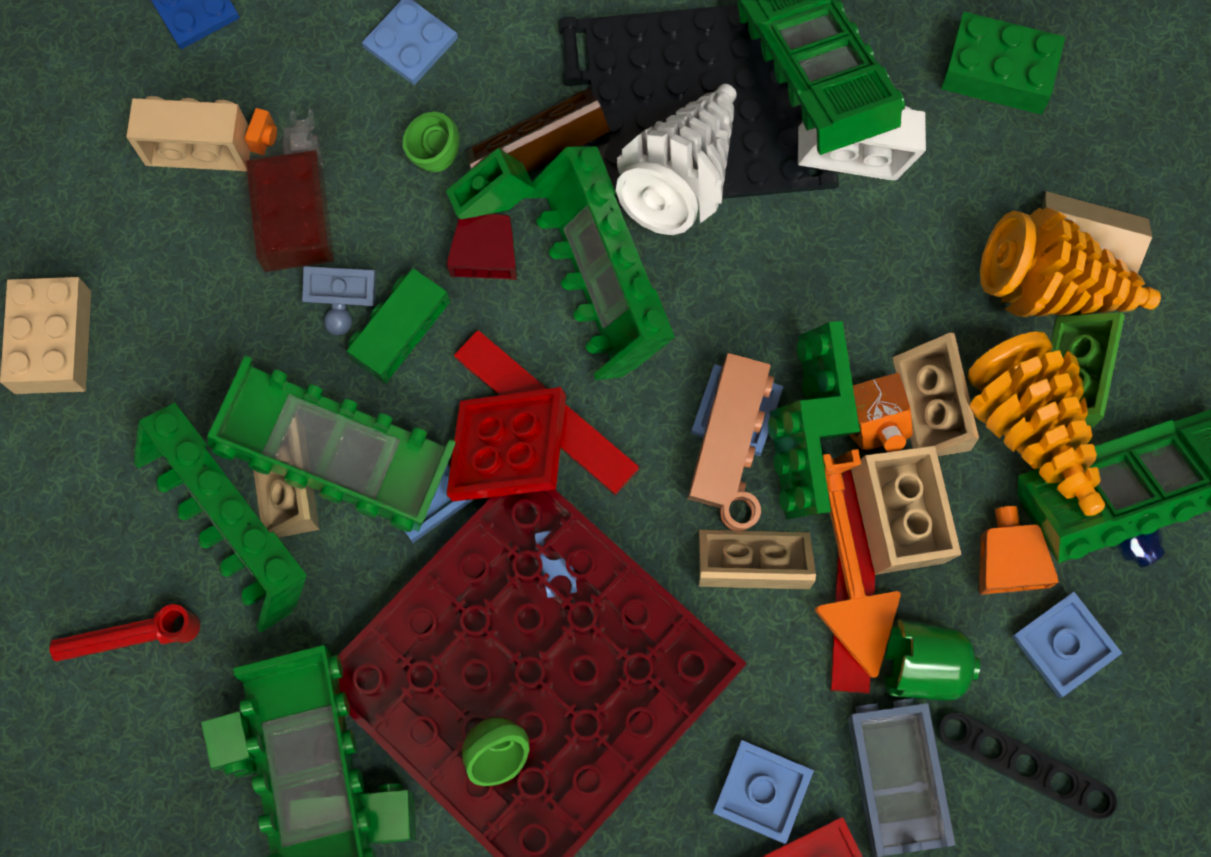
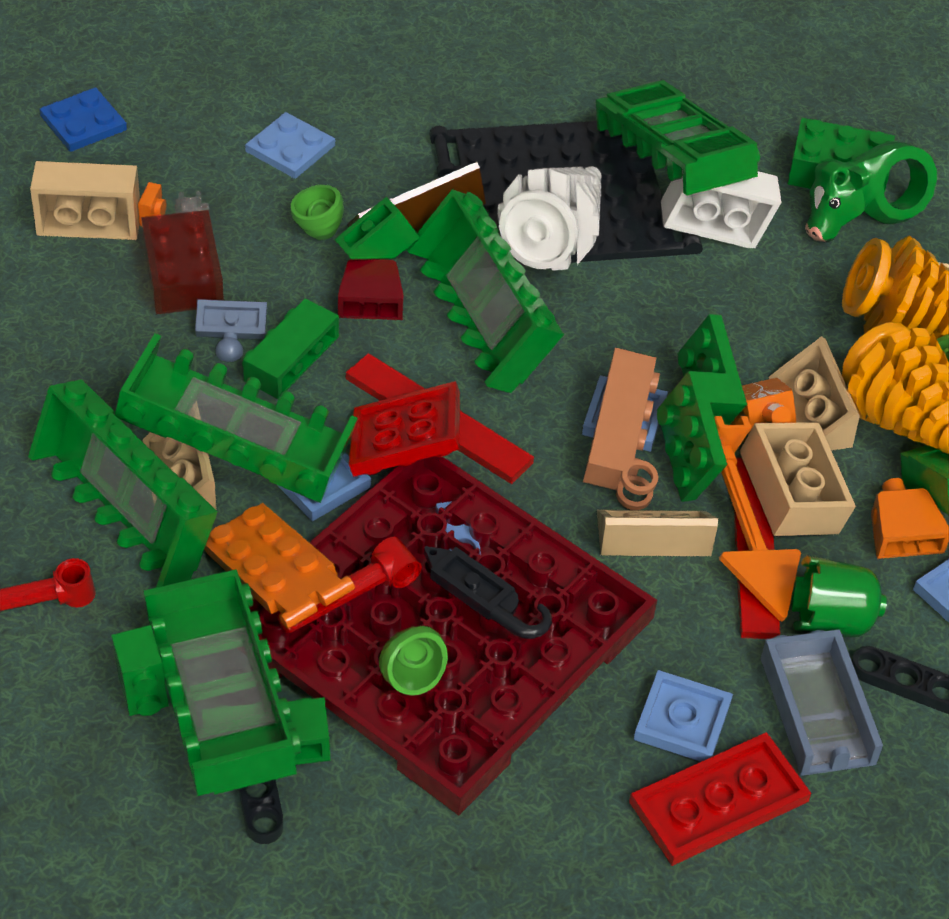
camera: 10 degrees left, 25 degrees down
(368, 619) = (277, 564): none -> orange hinge
(481, 627) = (389, 565): none -> red axle
(571, 660) = (482, 590): none -> black plate
(1003, 117) = (857, 186): none -> green animal

